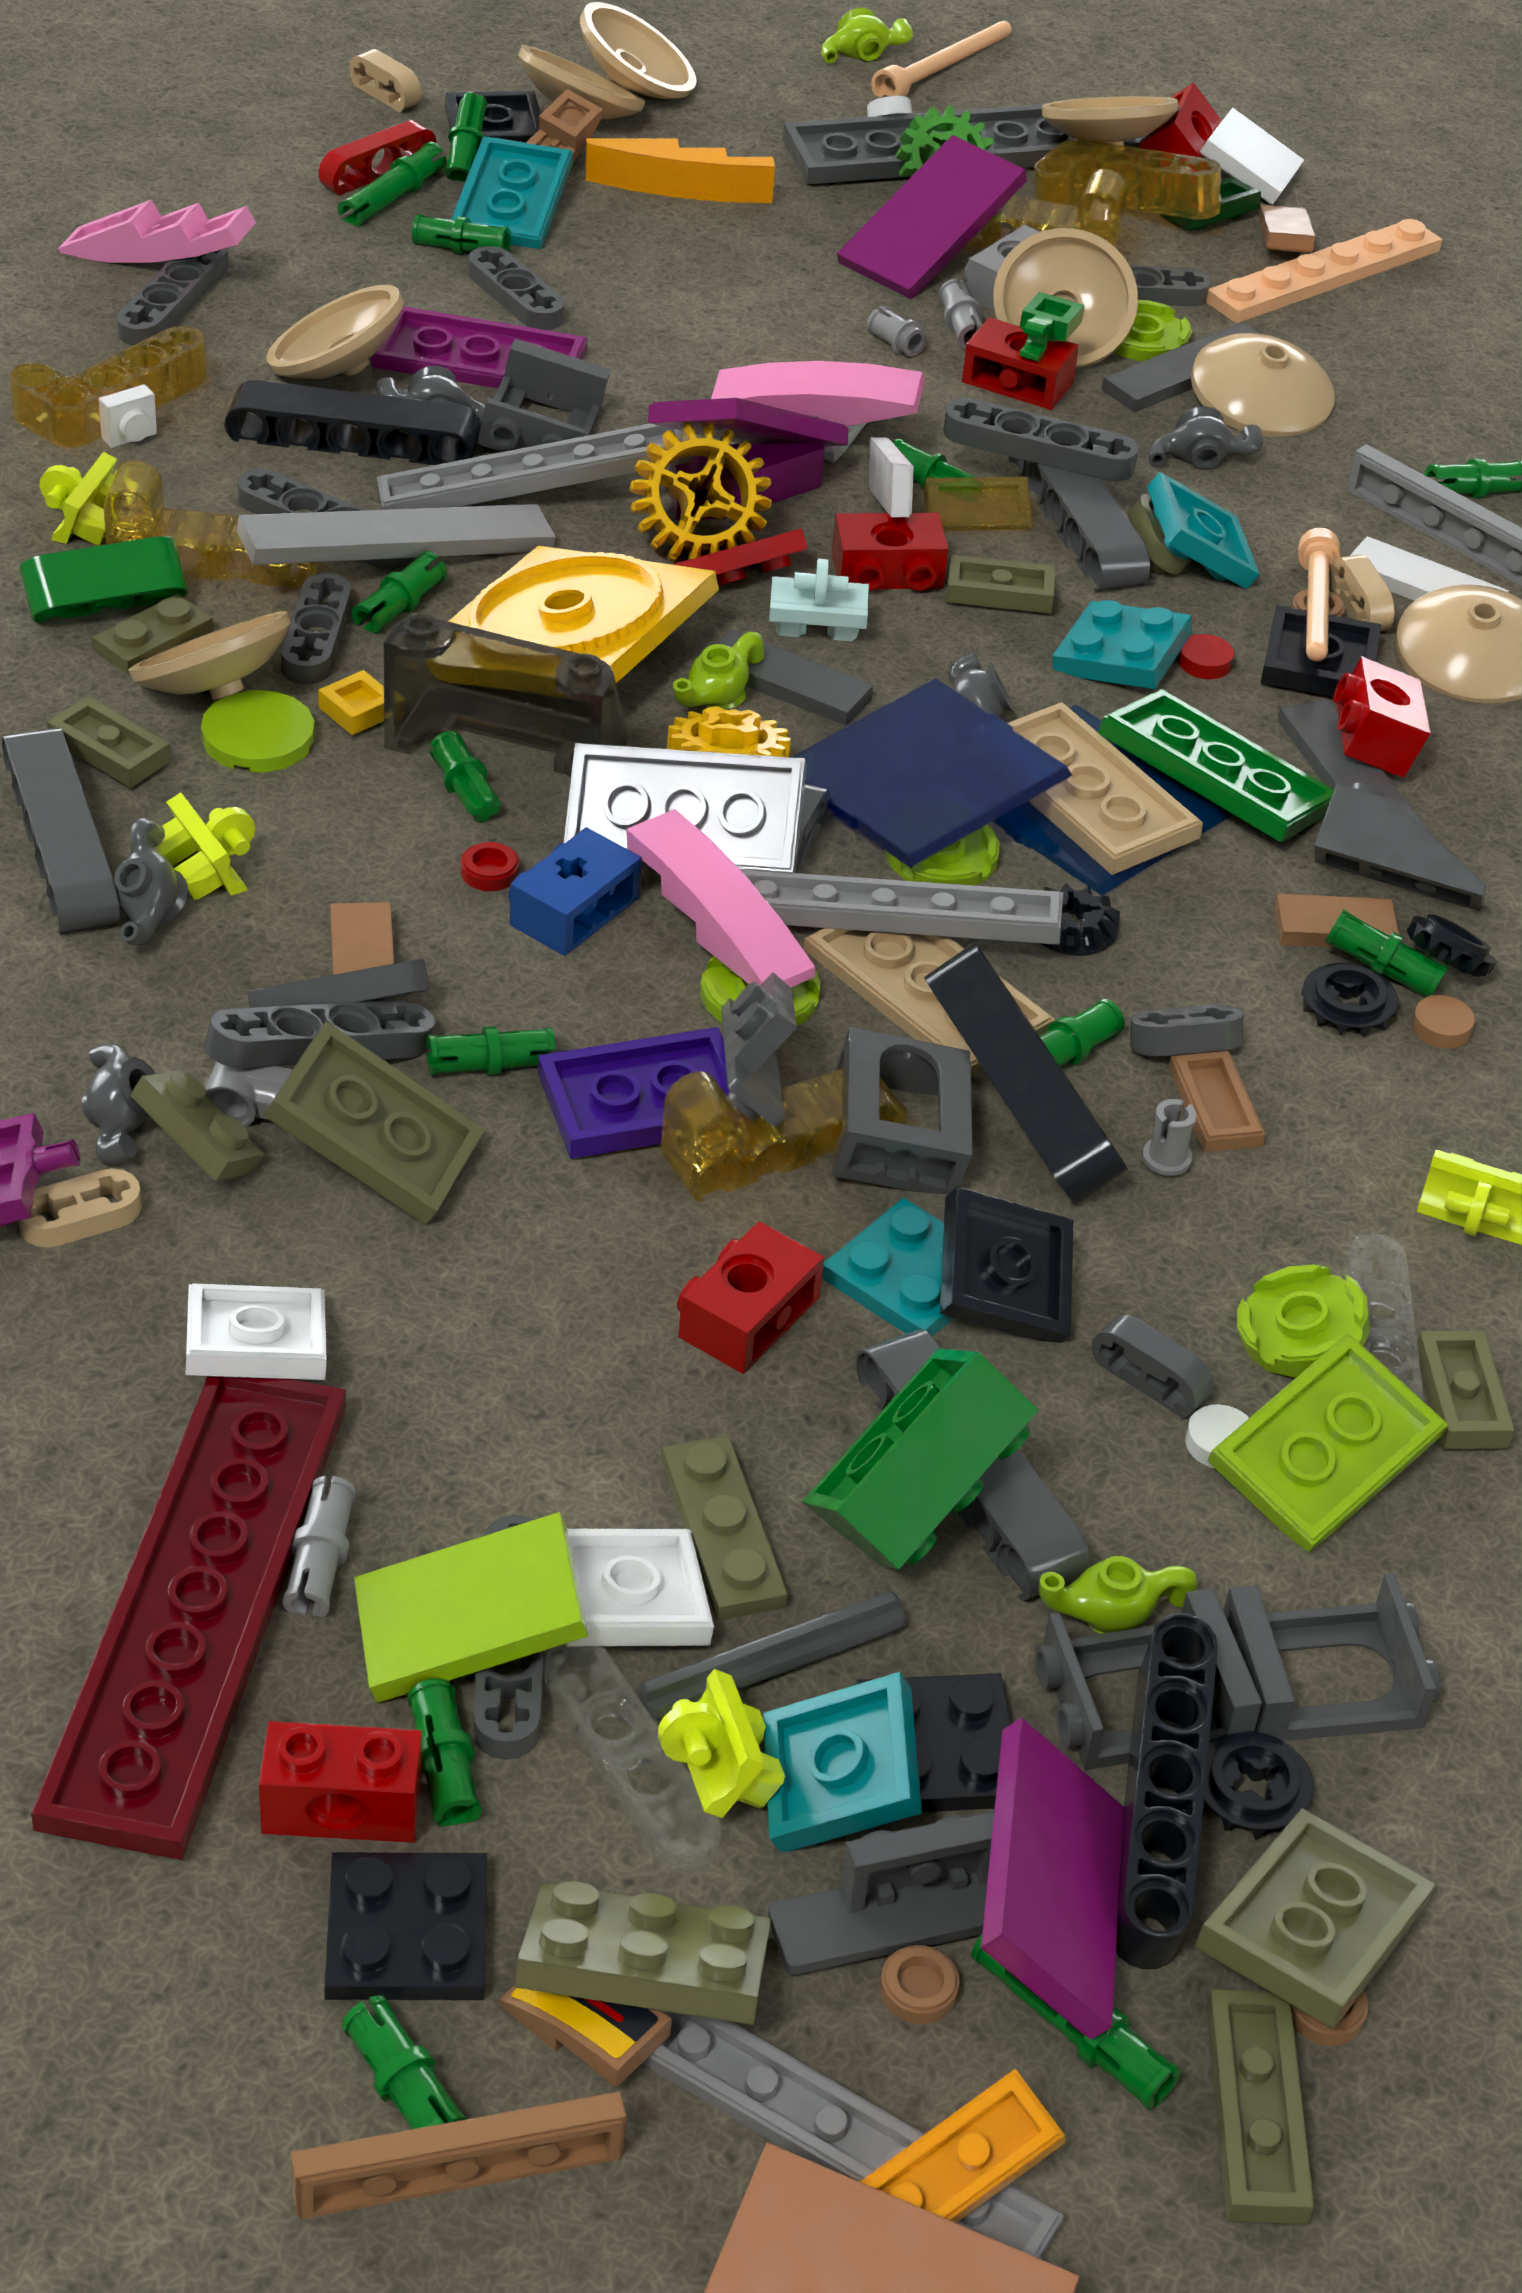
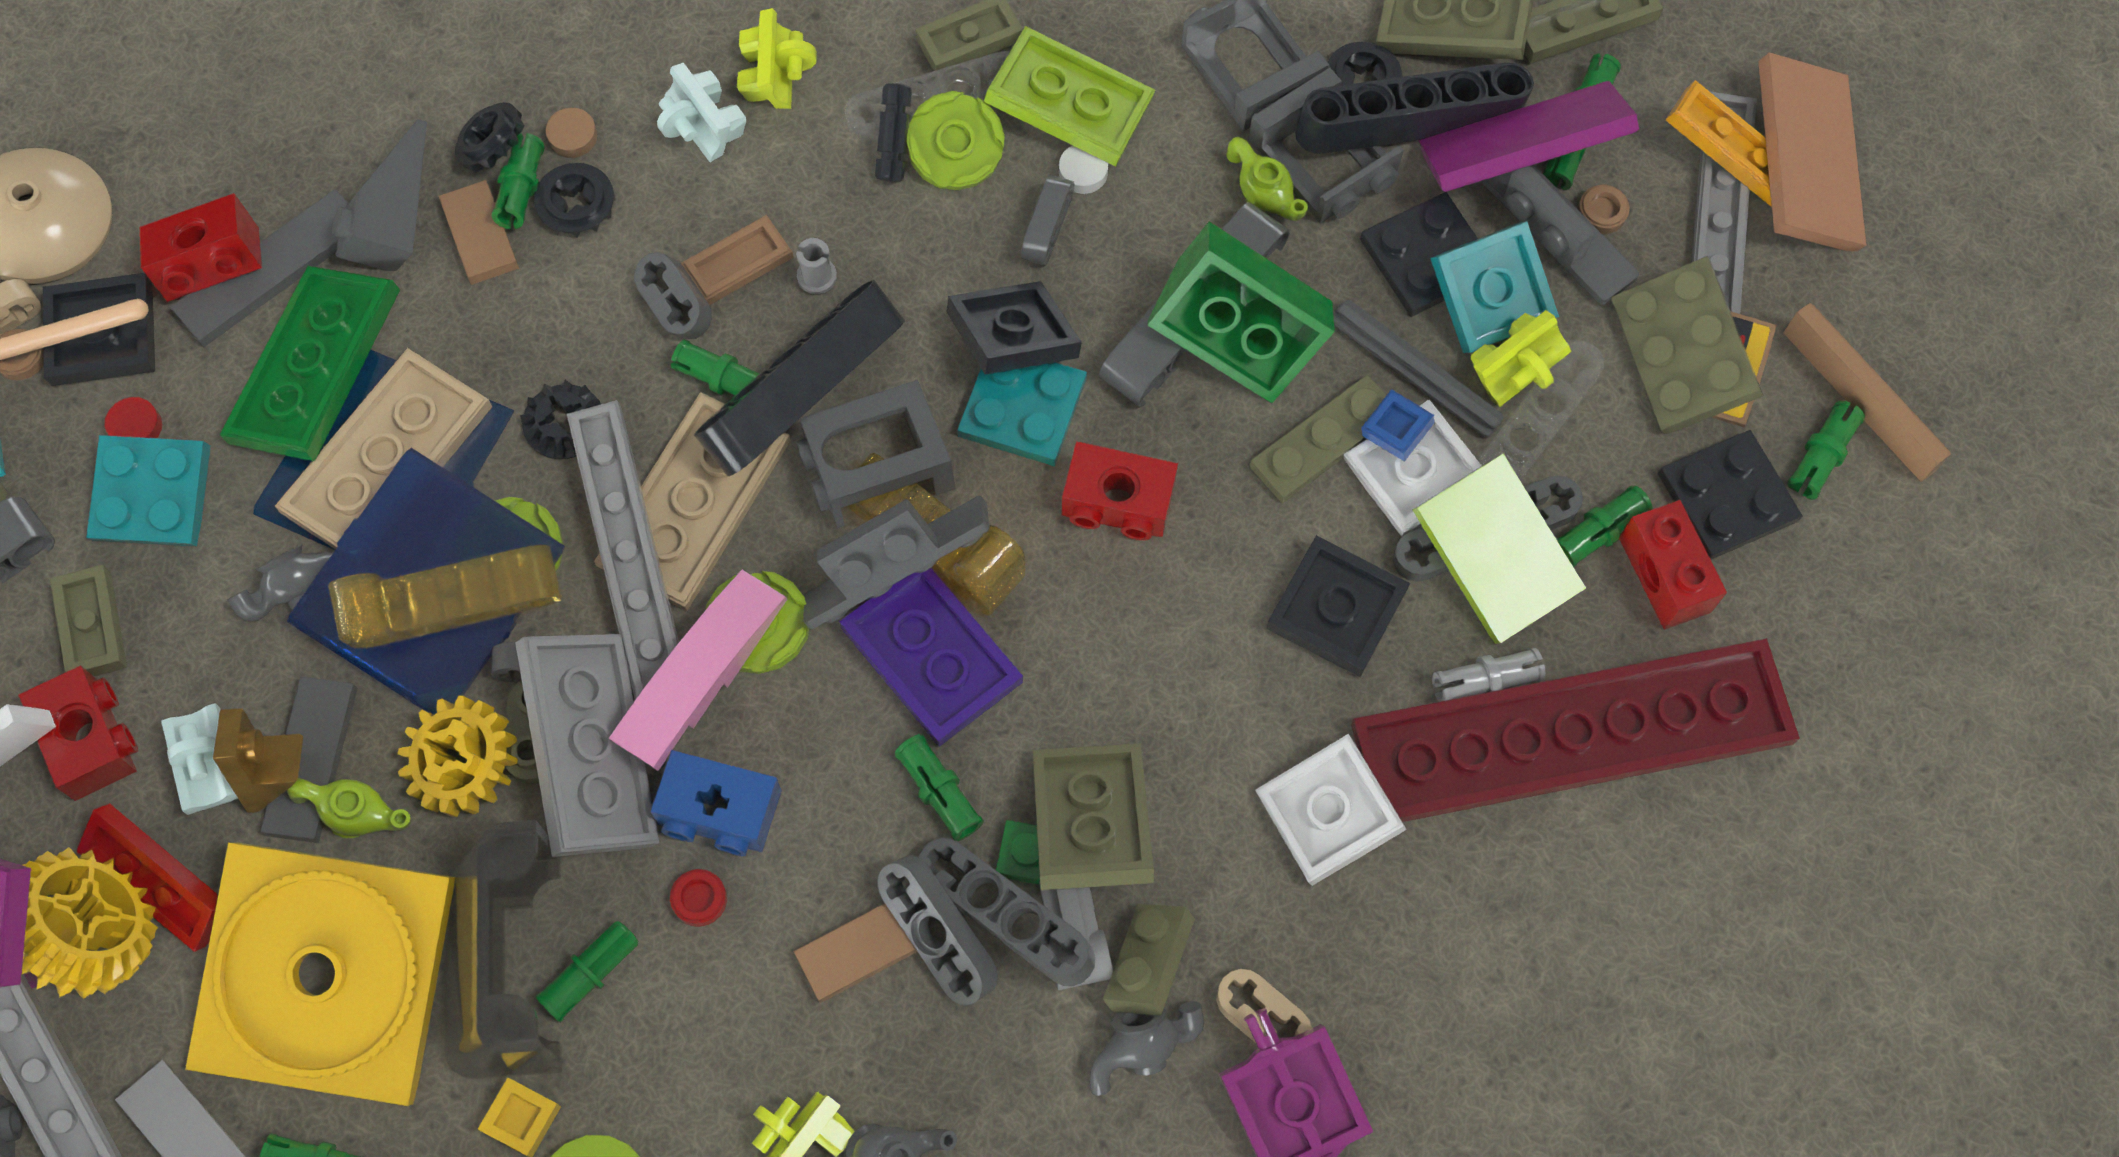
camera: 110 degrees left, 25 degrees up
(494, 1443) = (1338, 606): none -> black plate
(691, 1571) = (1398, 425): none -> blue tile
(795, 604) = (255, 764): none -> pearl gold slope
(891, 740) = (442, 598): none -> clear yellow beam
(1341, 1255) = (893, 132): none -> black axle
(1426, 1104) = (692, 112): none -> light aqua hips

